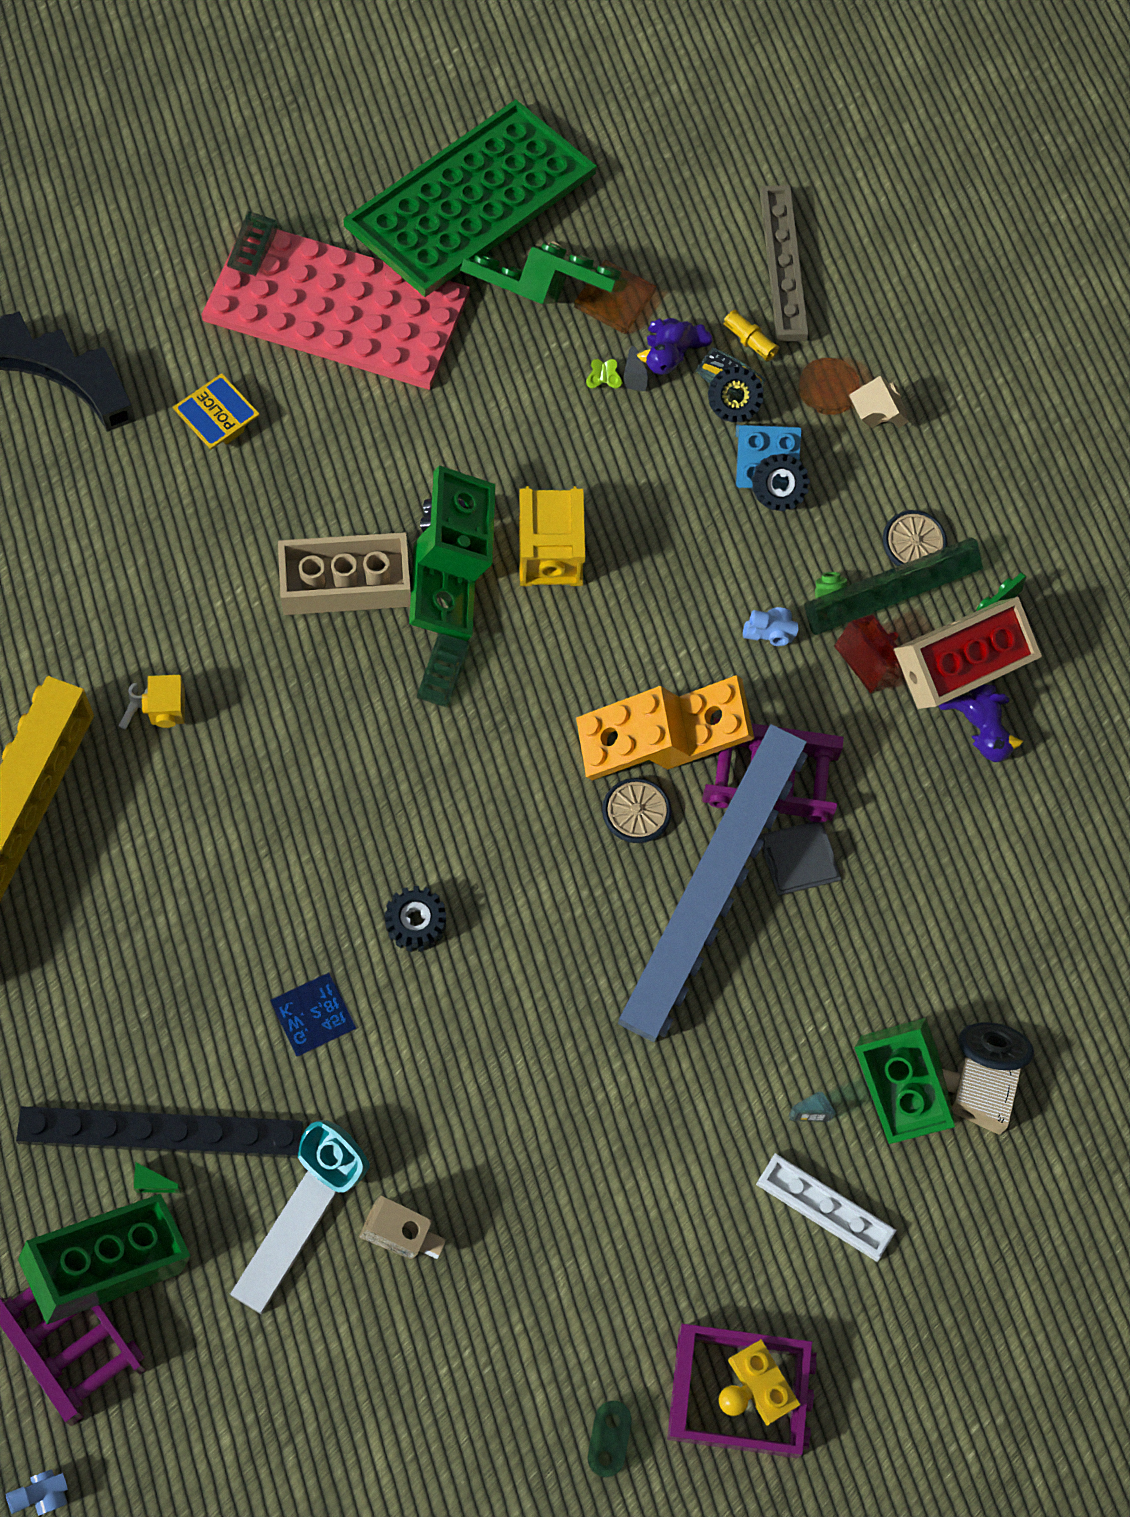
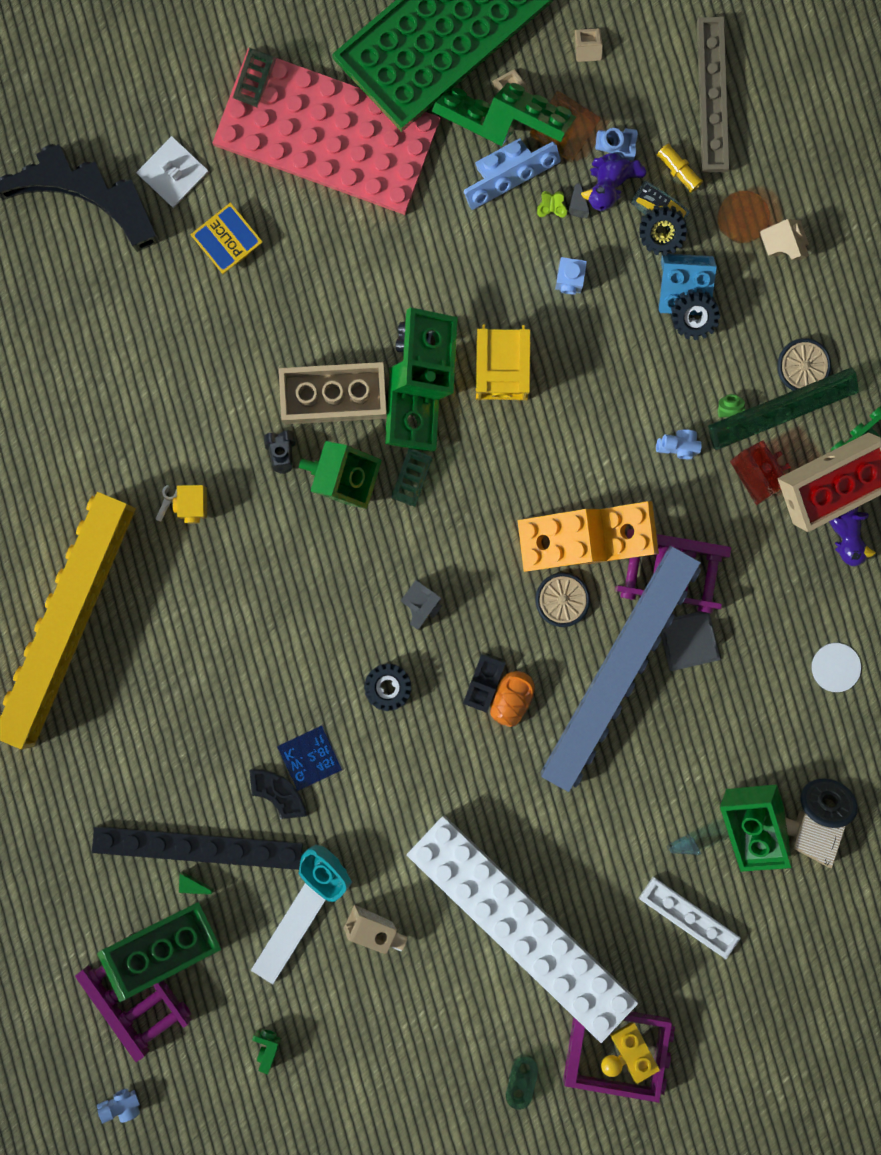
camera: 15 degrees right, 20 degrees up
(152, 347) = (172, 172): none -> white piece
(252, 1410) = (266, 1054): none -> green bracket
(272, 1057) = (279, 792): none -> black tile
(279, 642) = (280, 450): none -> black plate
(358, 660) = (343, 474): none -> green piece
(458, 814) = (421, 603): none -> dark grey brick
(540, 911) = (484, 682): none -> black slope
(551, 339) = (508, 169): none -> light blue bracket
(578, 930) = (512, 698): none -> orange piece
(603, 1218) = (523, 929): none -> white brick
(629, 444) = (570, 275): none -> light blue brick
(638, 217) = (588, 45): none -> tan slope
(673, 305) = (622, 142): none -> light blue plate
(988, 886) = (836, 667): none -> white sticker

